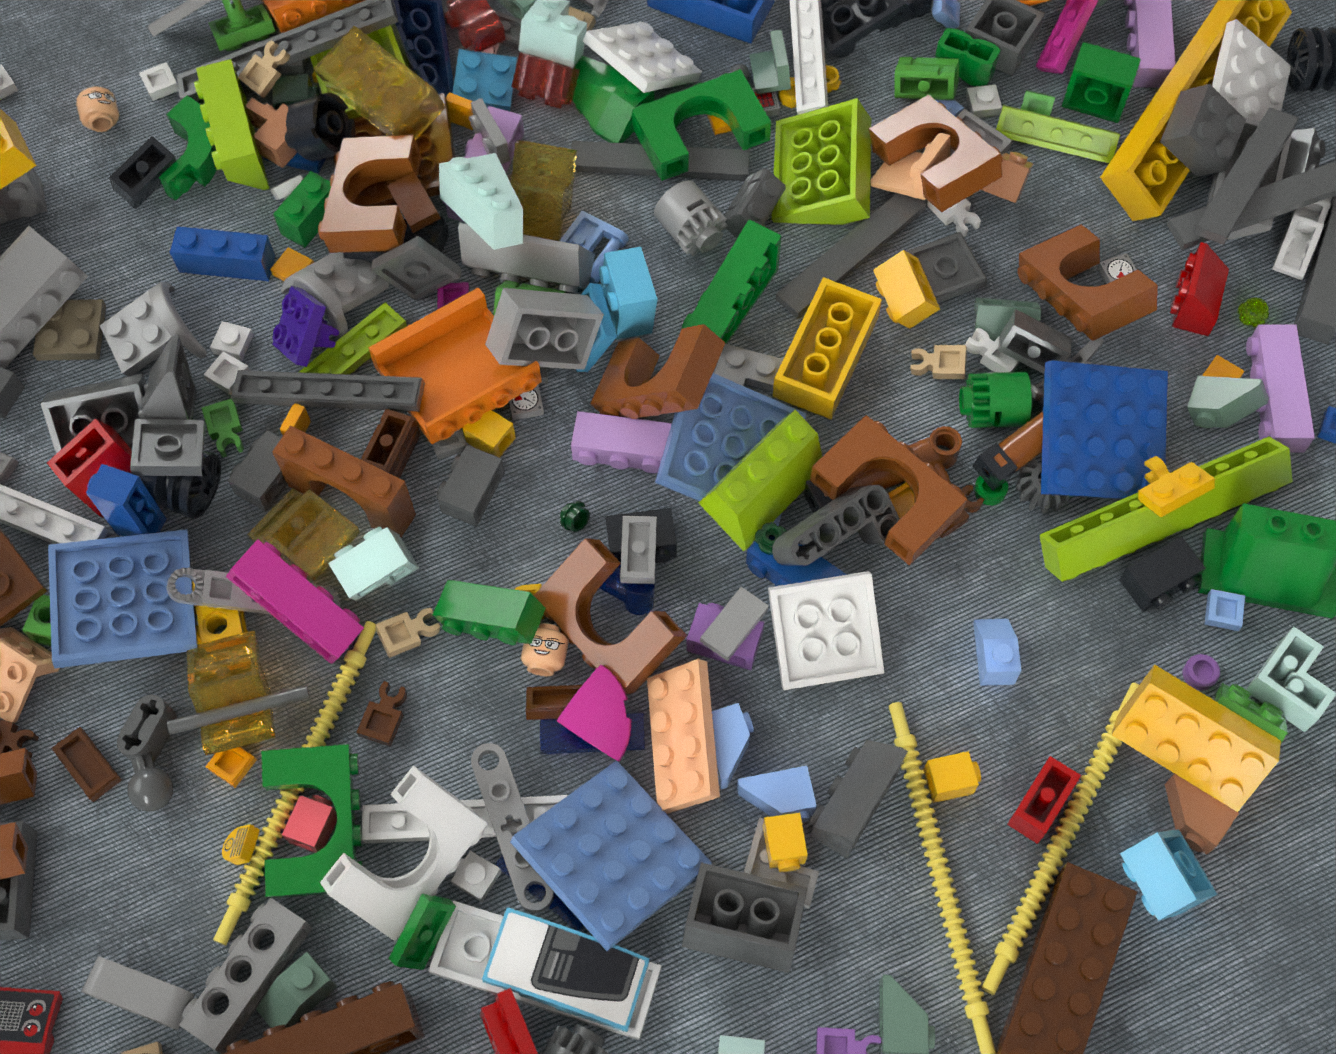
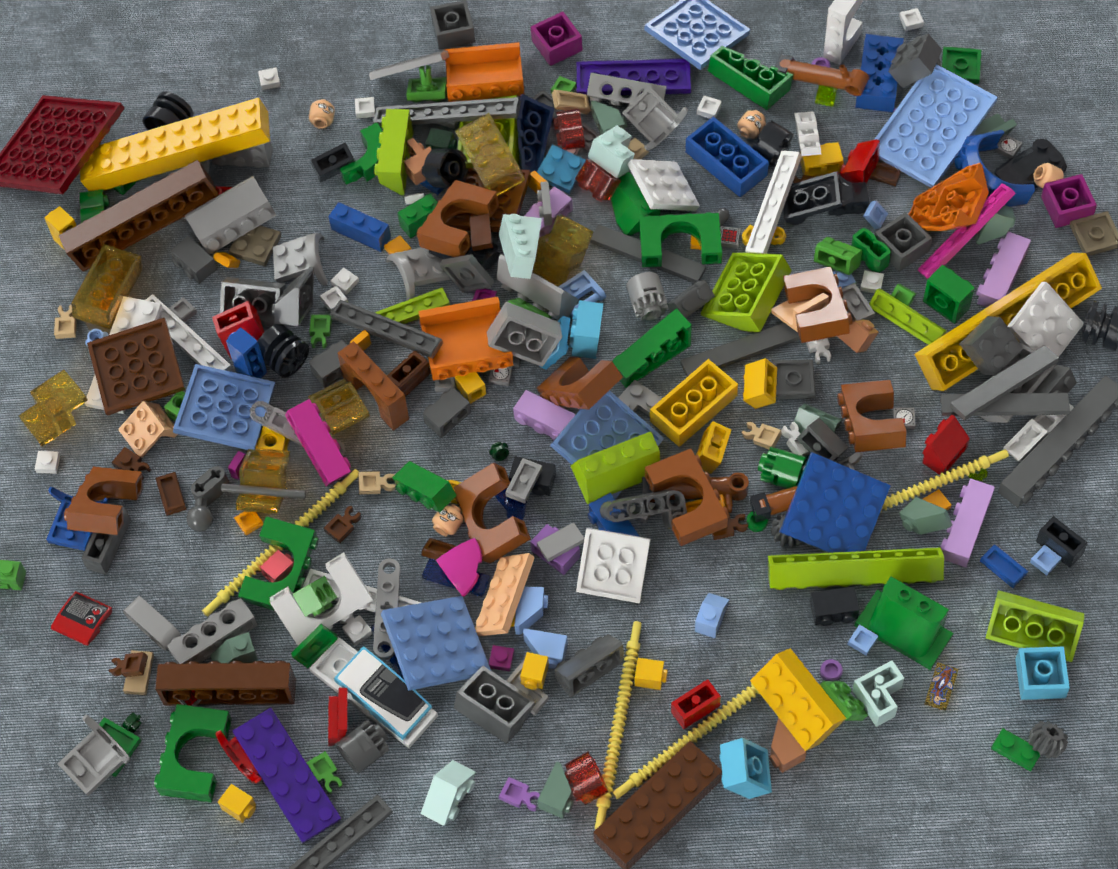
camera: 25 degrees right, 5 degrees down
(35, 368) = (226, 260): none -> light orange tile
(167, 447) = (280, 330): dark grey plate -> none
(177, 681) = (235, 465): none -> magenta plate
(240, 844) = (236, 565): yellow tile -> none
(262, 73) = (424, 123): tan plate -> none
(302, 327) = (386, 286): dark purple plate -> none
(373, 562) = (370, 435): light aqua brick -> none
(392, 853) = (315, 597): none -> bright green brick
(718, 836) = (501, 658): none -> magenta plate
(762, 536) = (600, 497): dark green plate -> none
(771, 68) = (744, 216): sand green panel -> none
(884, 398) = (713, 446): none -> yellow brick
(938, 983) = (586, 778): none -> clear red brick
(1174, 489) = (859, 555): yellow plate -> none
(1260, 297) = (983, 462): none -> light yellow hose

